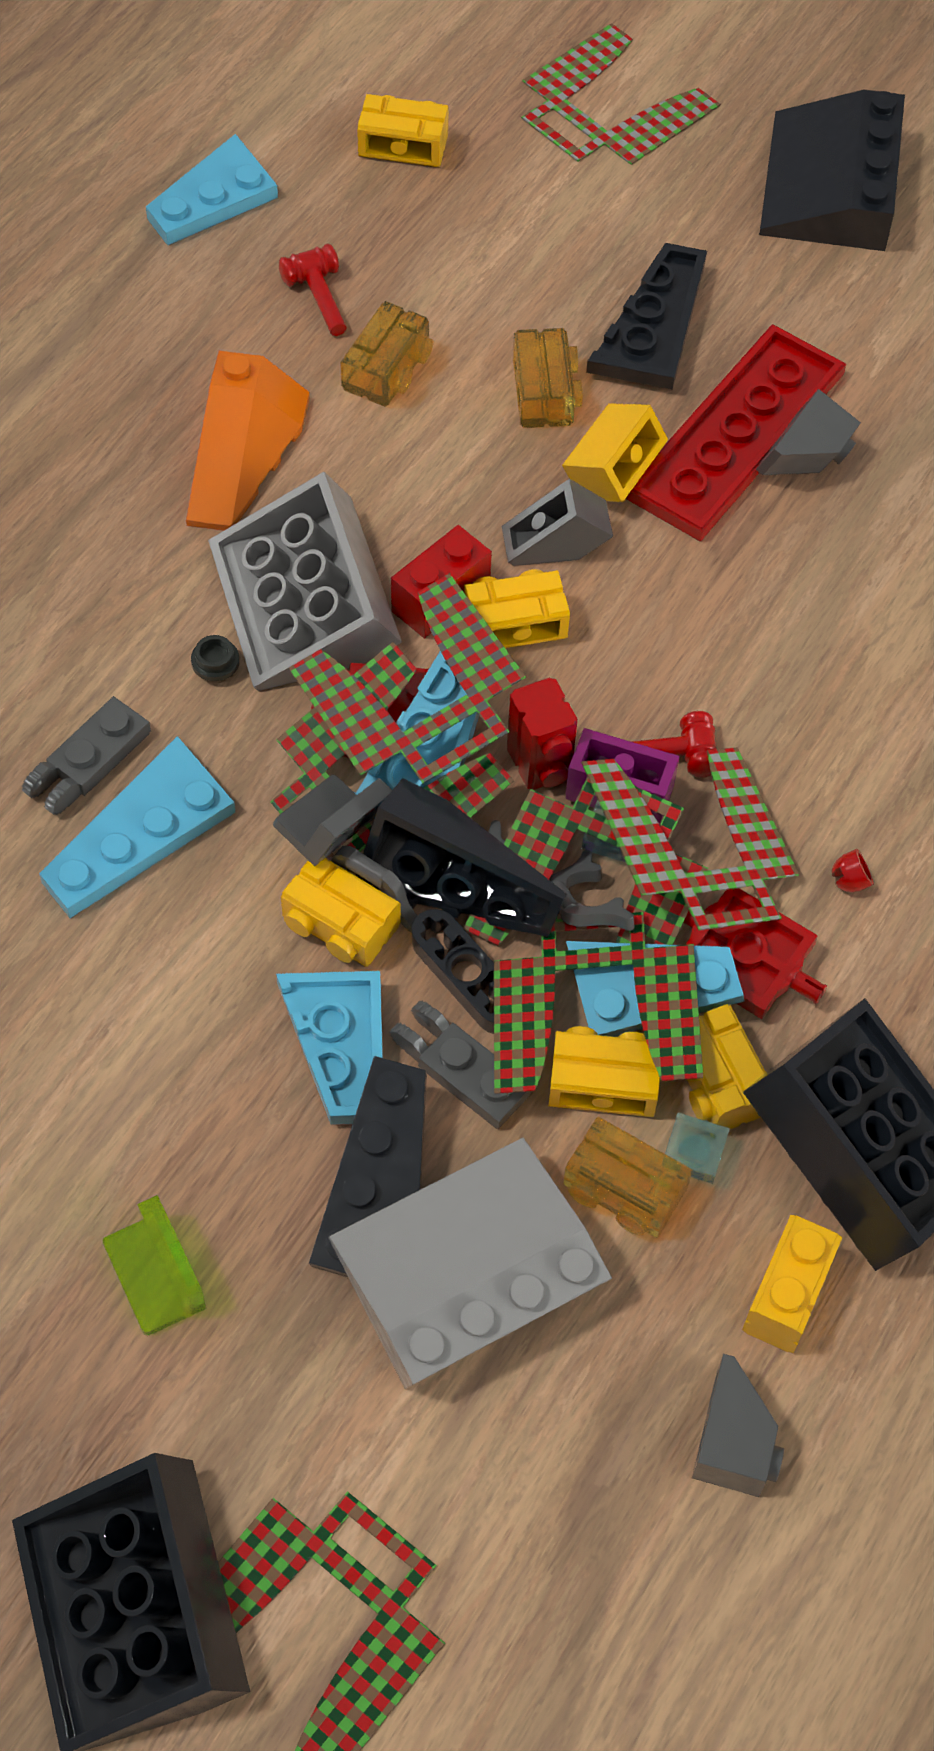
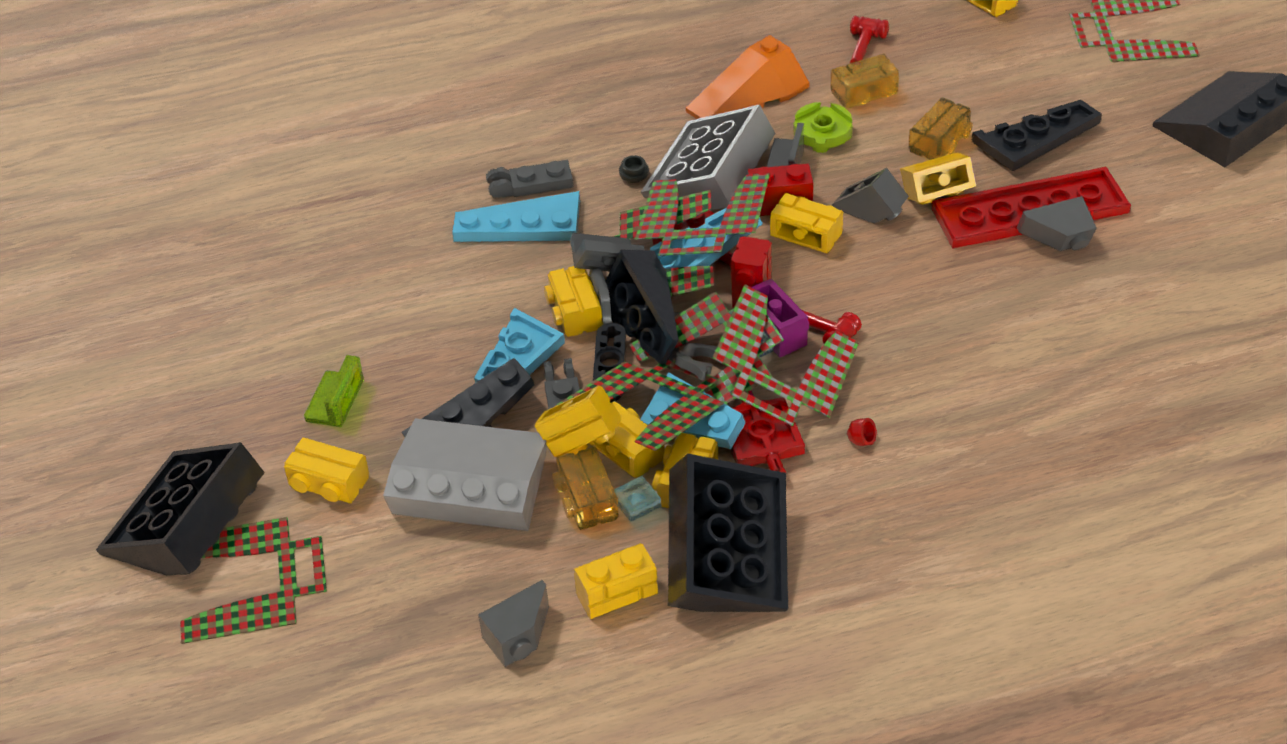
camera: 45 degrees right, 15 degrees down
(273, 1396) = (326, 470): none -> yellow brick
(393, 471) = (824, 125): none -> lime plate
(395, 523) = (787, 151): none -> dark grey panel
(561, 1099) = (578, 422): none -> yellow brick

